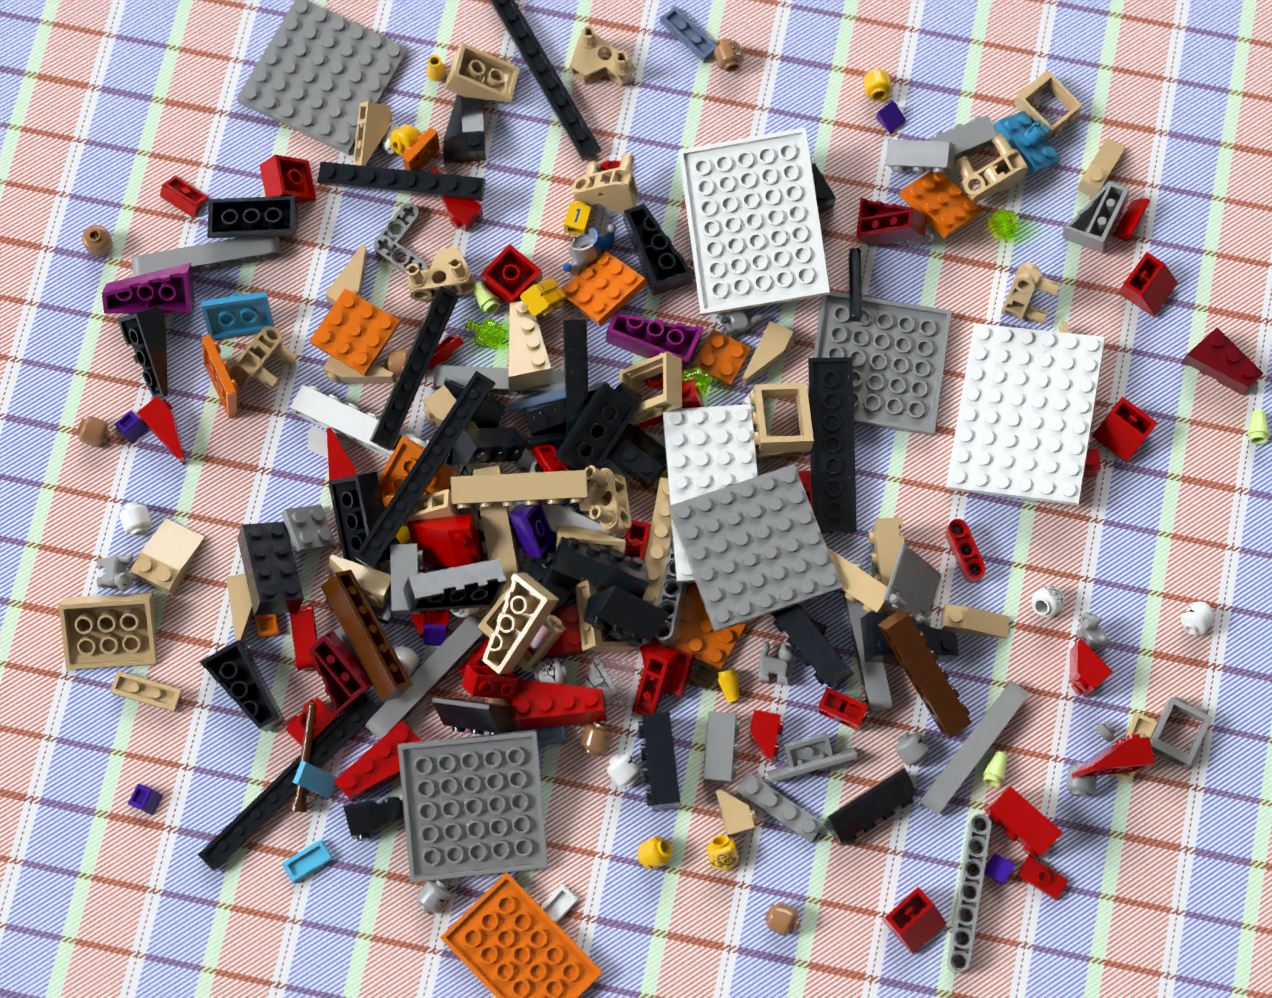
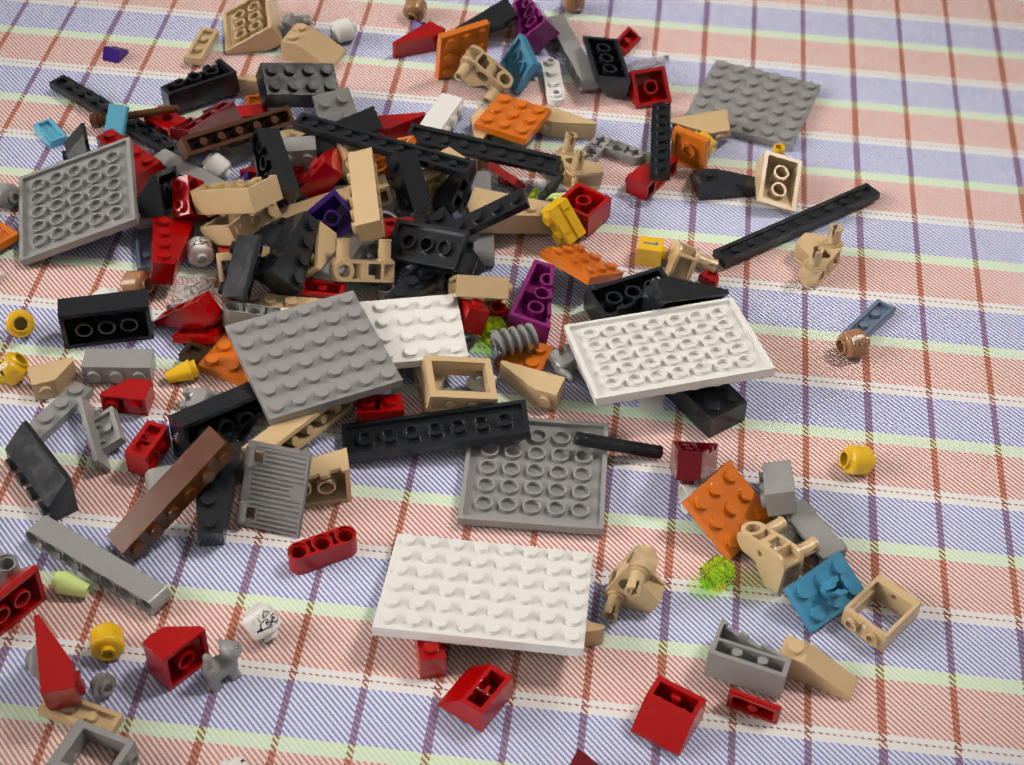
camera: 85 degrees right, 30 degrees down
(249, 174) = (648, 63): none -> clear plate
(251, 283) = (553, 82): none -> white plate
(465, 306) = (551, 187): none -> pearl dark grey bar
(588, 248) = (618, 254): light grey piece -> none
(667, 202) = (675, 292): none -> black wedge
(719, 363) = (513, 338): none -> light grey piece
(890, 116) = (824, 475): dark purple slope -> none
(912, 749) = (100, 510): light grey head -> none
(974, 621) = (240, 559): tan slope -> none
(1062, 730) = (107, 641): none -> yellow head

